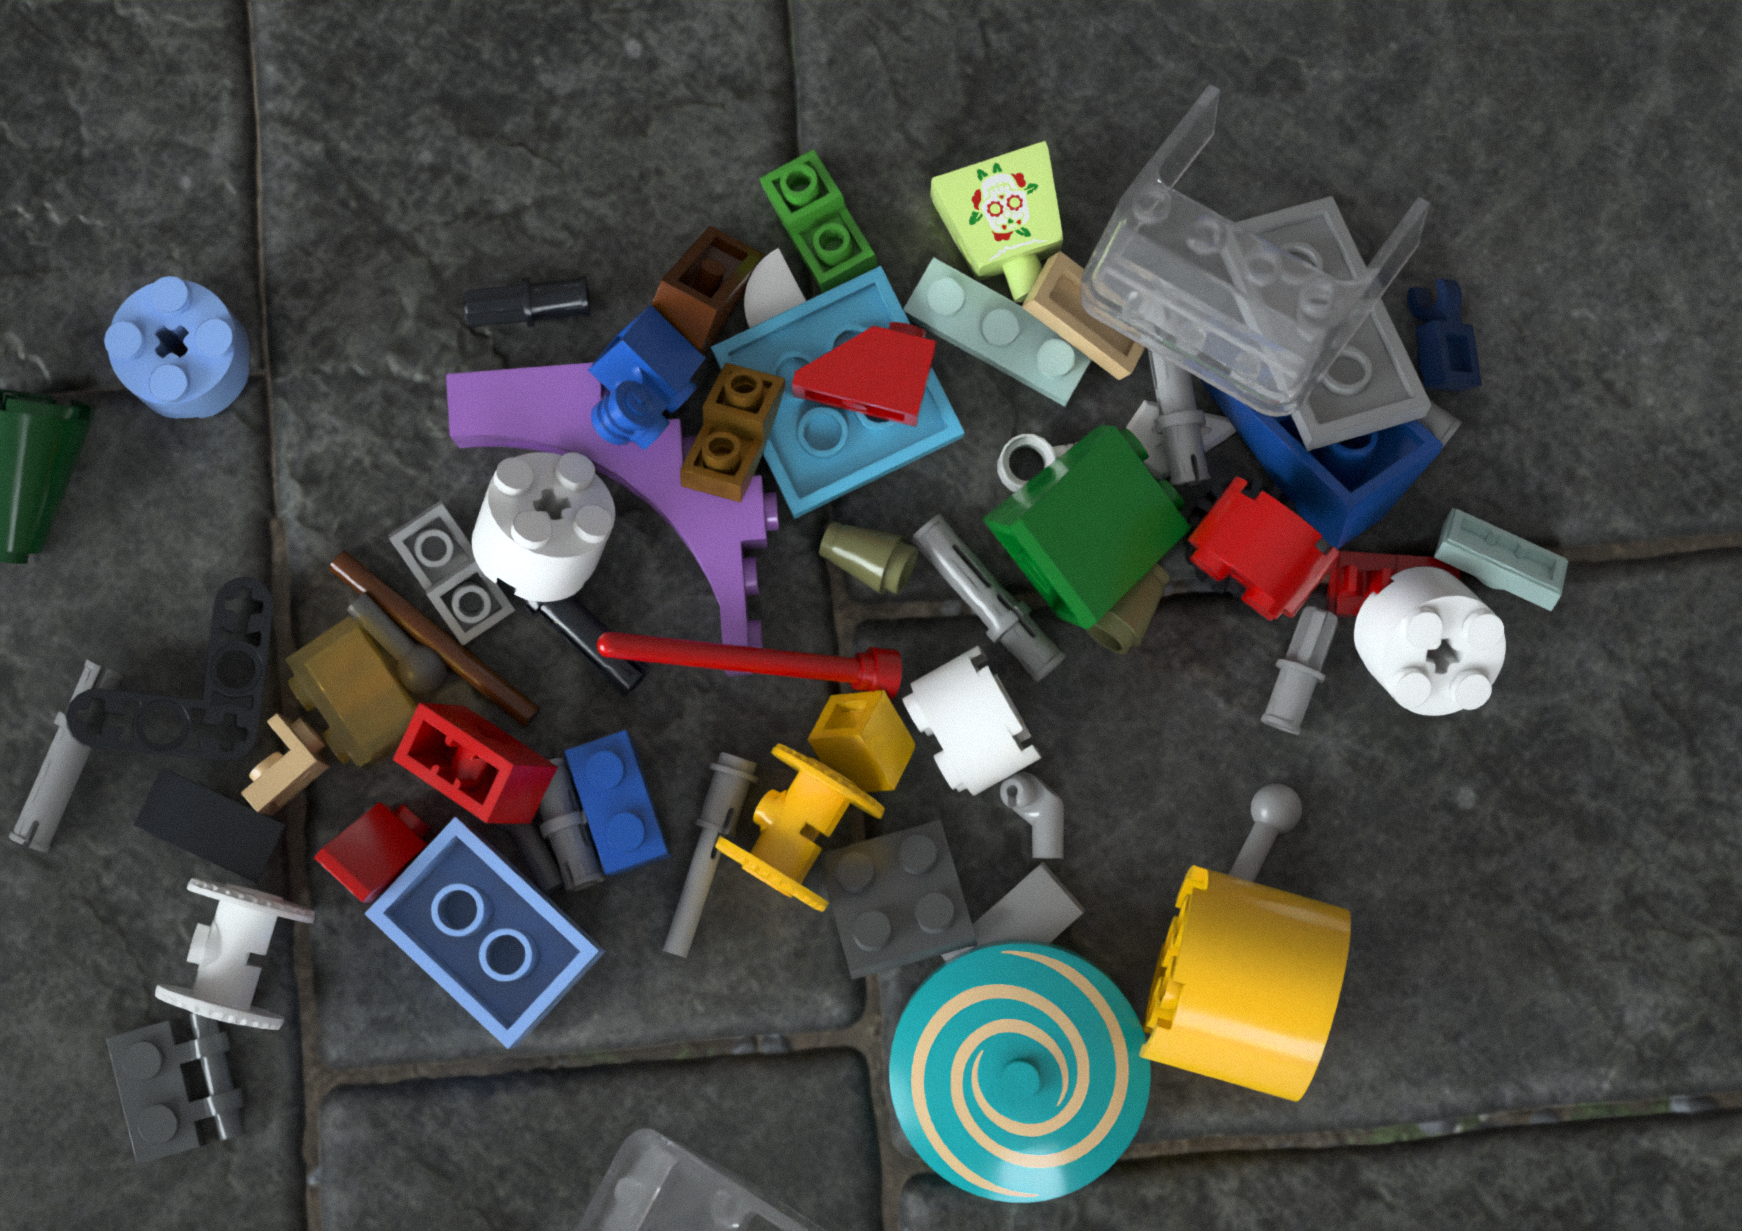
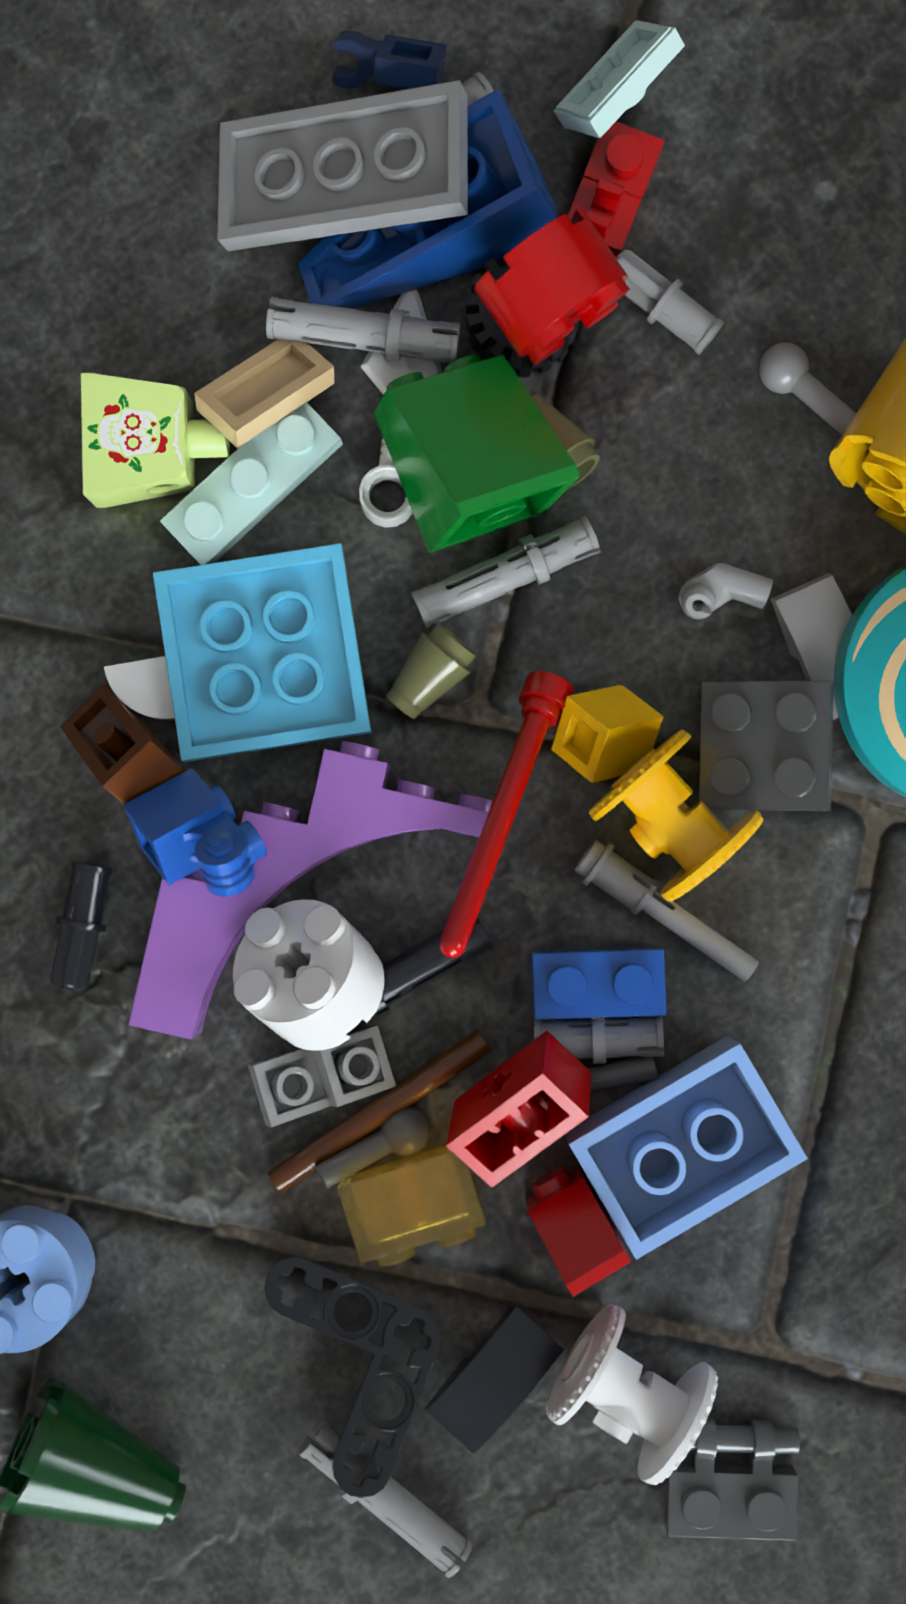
camera: 65 degrees left, 5 degrees up
(283, 777) = (470, 1297): tan bracket -> none
(733, 432) = (273, 763): pearl gold slope -> none
(818, 221) = (89, 621): bright green slope -> none
(873, 374) = (260, 608): red slope -> none
(971, 722) = (626, 620): white brick -> none
(1221, 294) = (287, 246): clear windscreen -> none
(1431, 642) = (683, 162): white brick -> none

